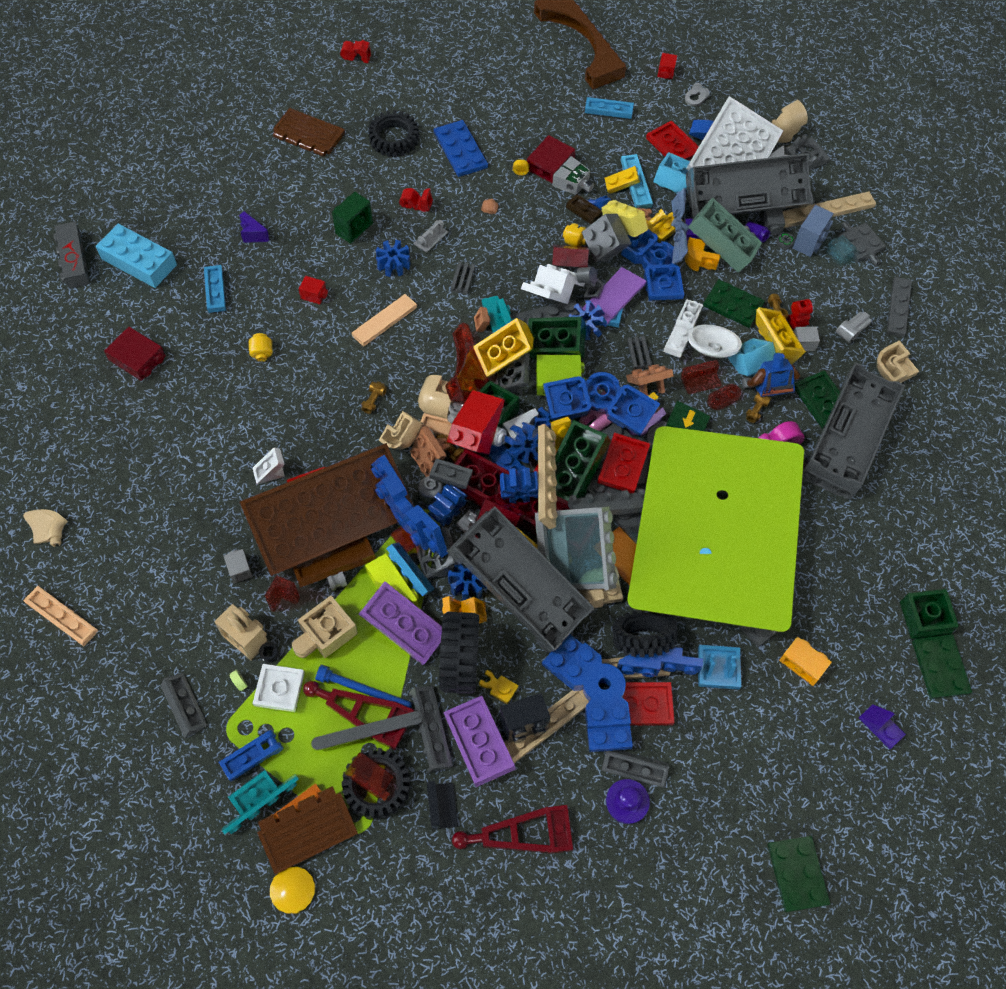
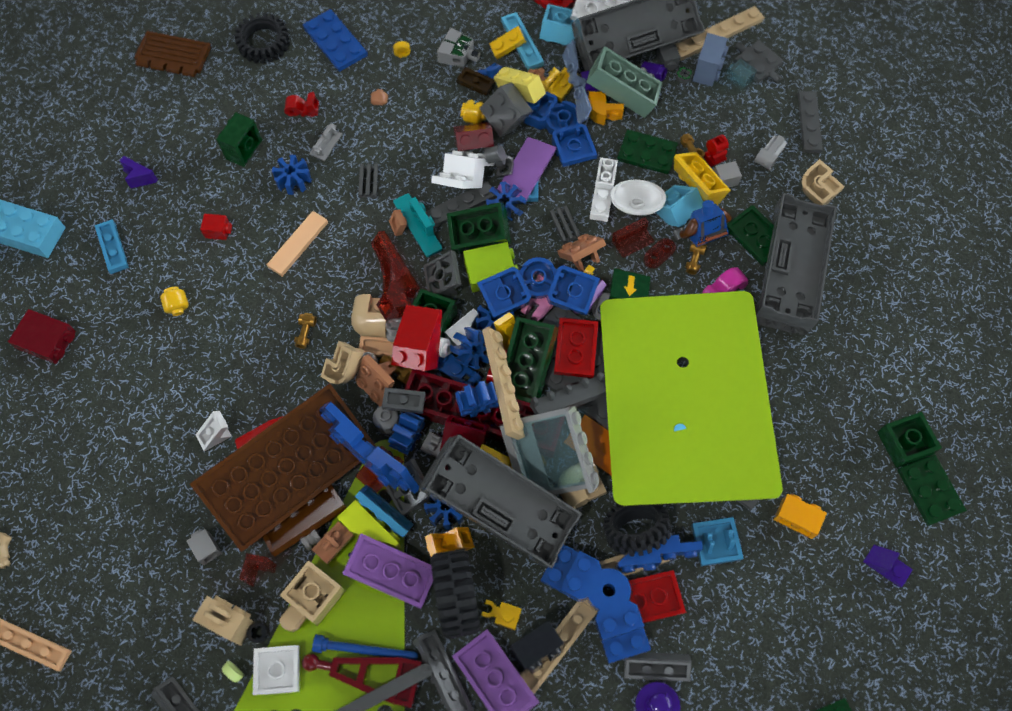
camera: 10 degrees left, 5 degrees up
(356, 587) = (332, 542): none -> nougat hips
(504, 346) = (428, 249): yellow slope -> none
(549, 157) = (429, 33): dark red brick -> none

